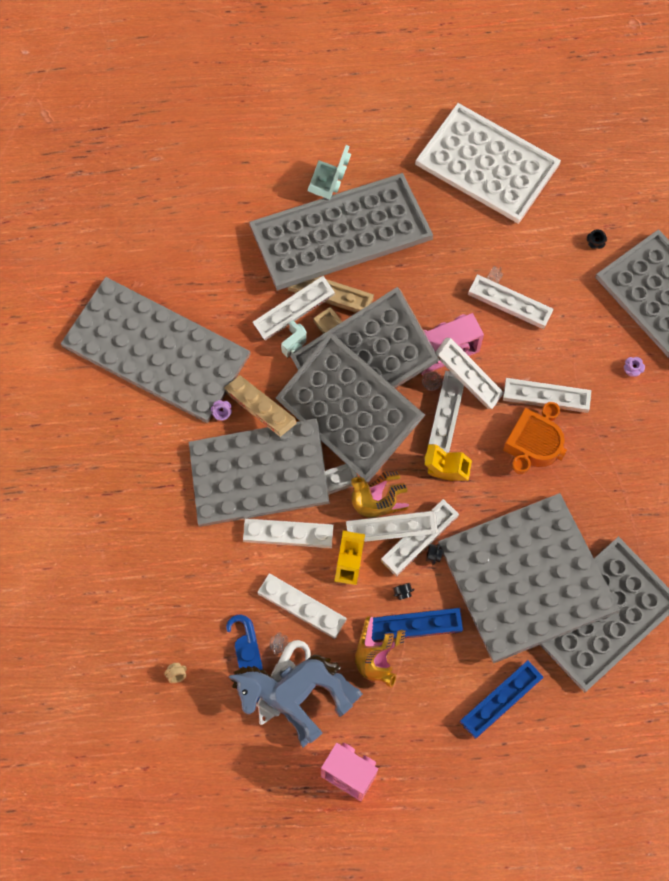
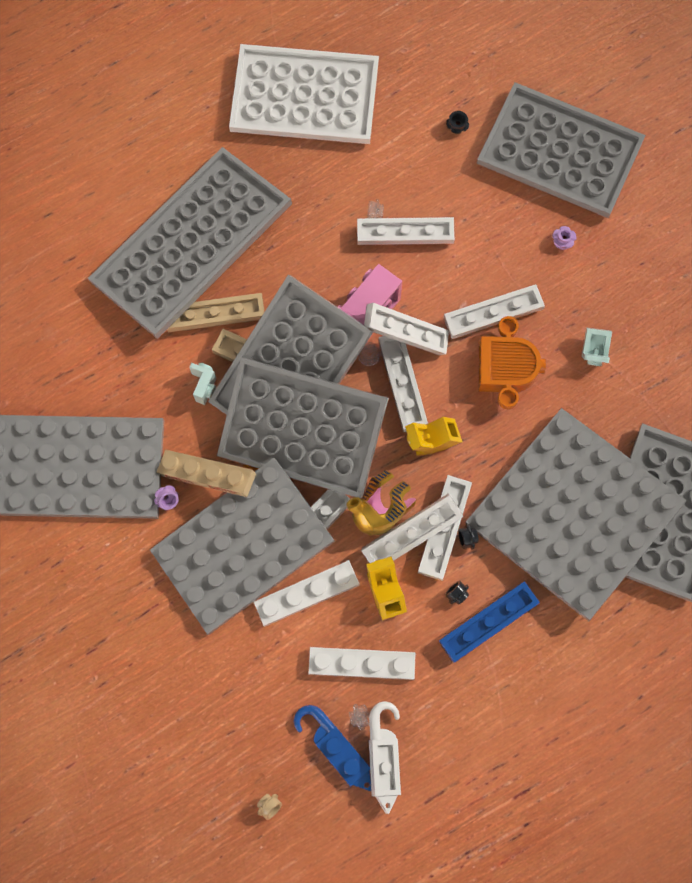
camera: 25 degrees left, 5 degrees up
(293, 690) = (404, 761): sand blue animal -> none
(294, 308) = (185, 348): white plate -> none
(326, 176) = (146, 189): light aqua bracket -> none
(349, 771) = (509, 819): bright pink brick -> none
(372, 656) = (464, 681): pearl gold piece -> none
(501, 699) = (615, 654): blue plate -> none
(614, 460) = (596, 346): none -> light aqua bracket

